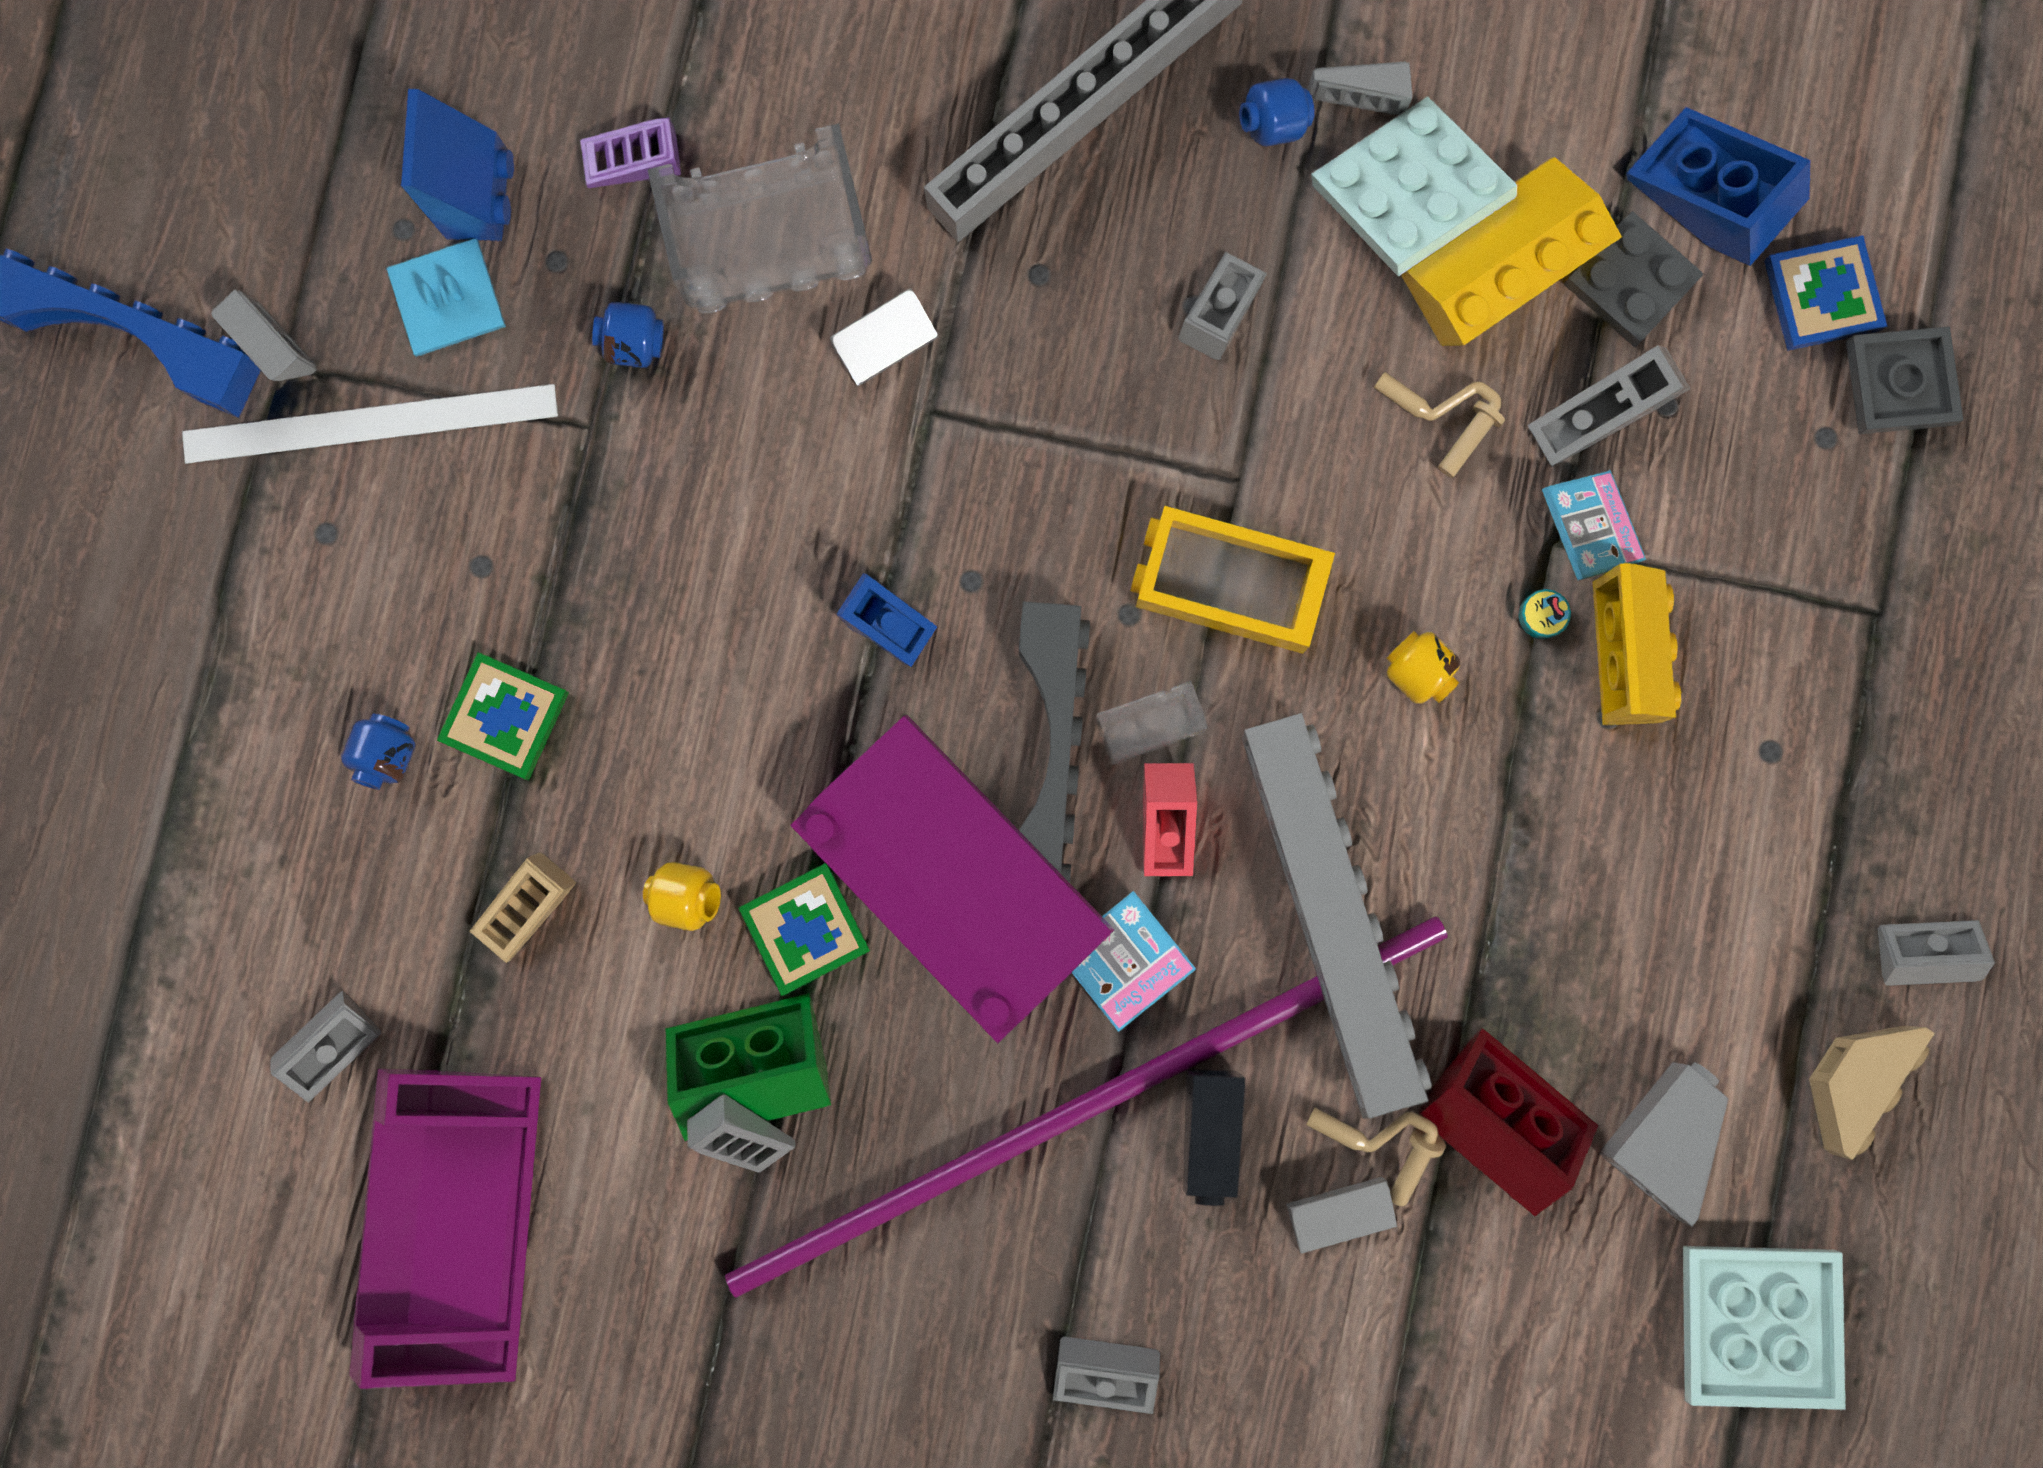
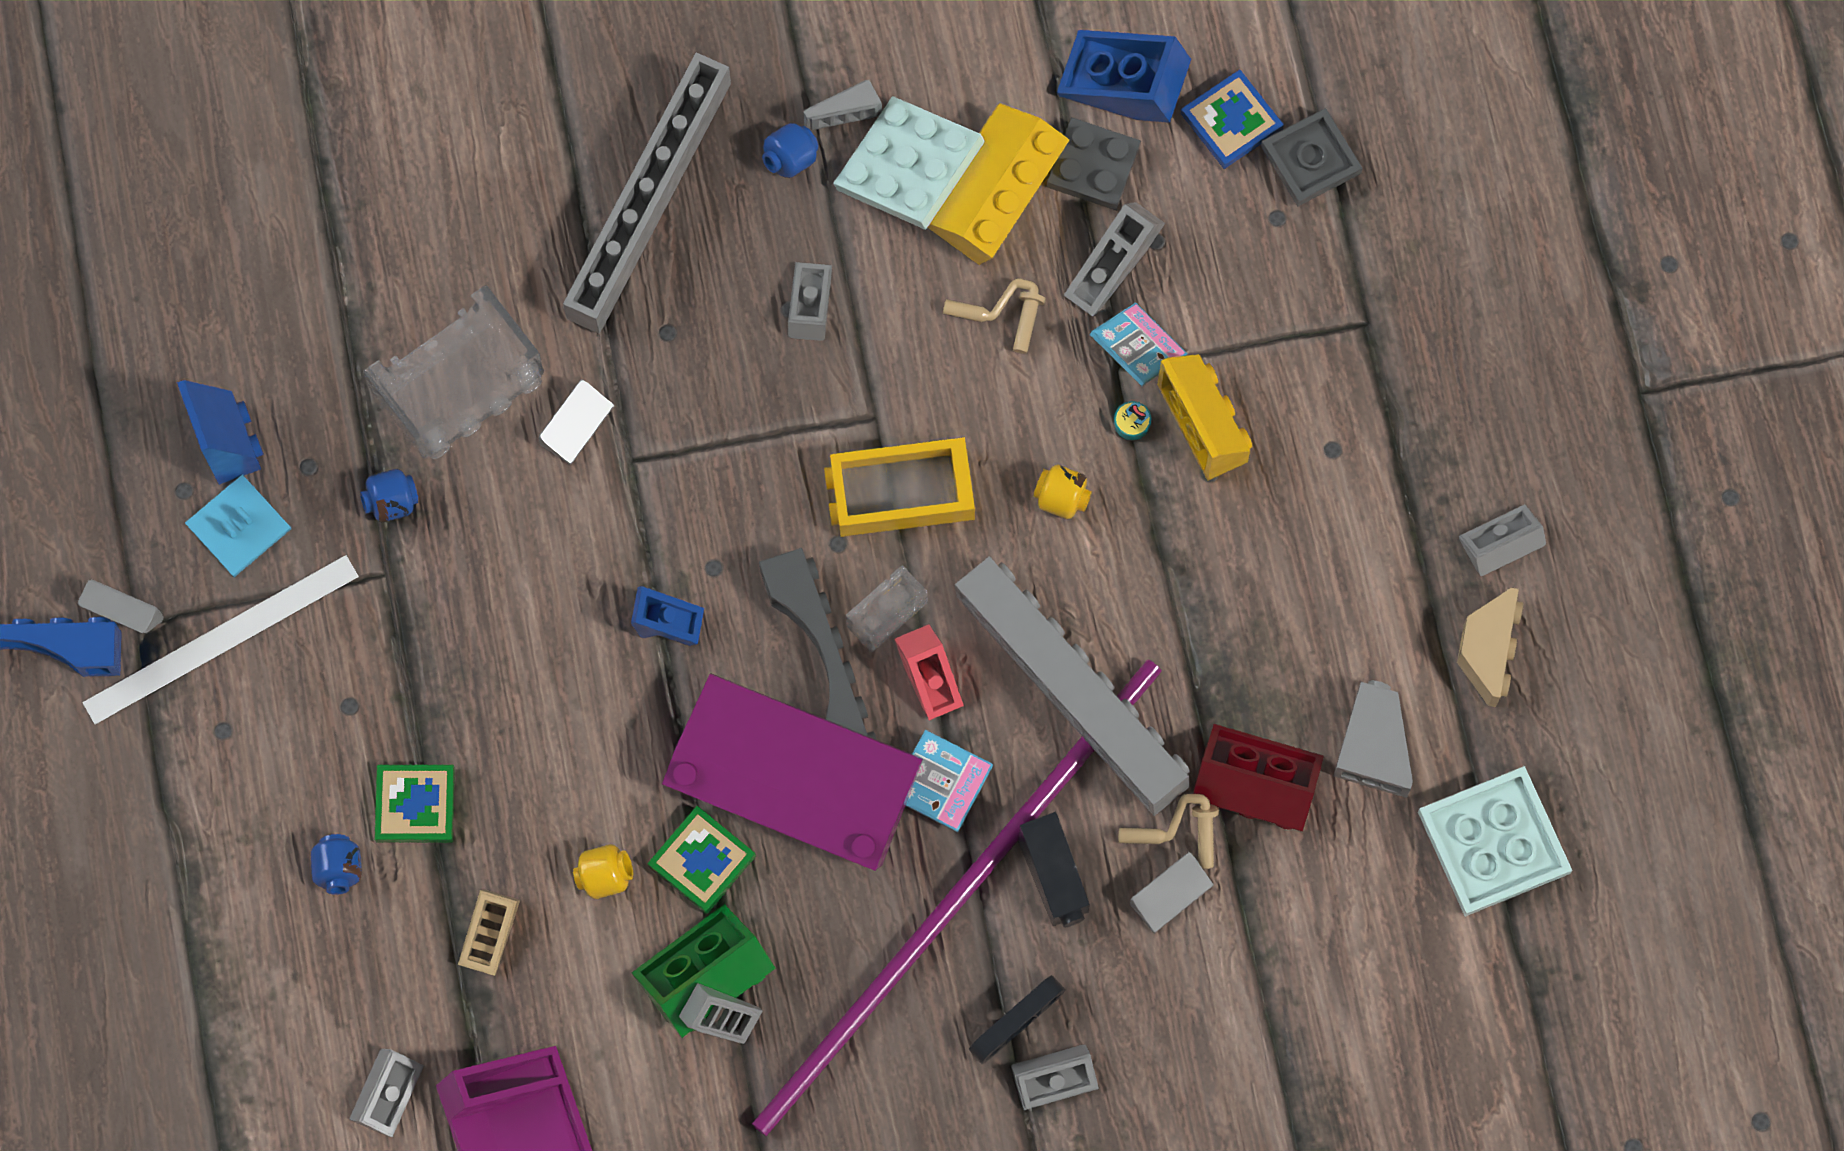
camera: 30 degrees left, 10 degrees down
(639, 134) = (324, 358): medium lavender slope -> none
(1090, 1291) = (1017, 1019): none -> black beam

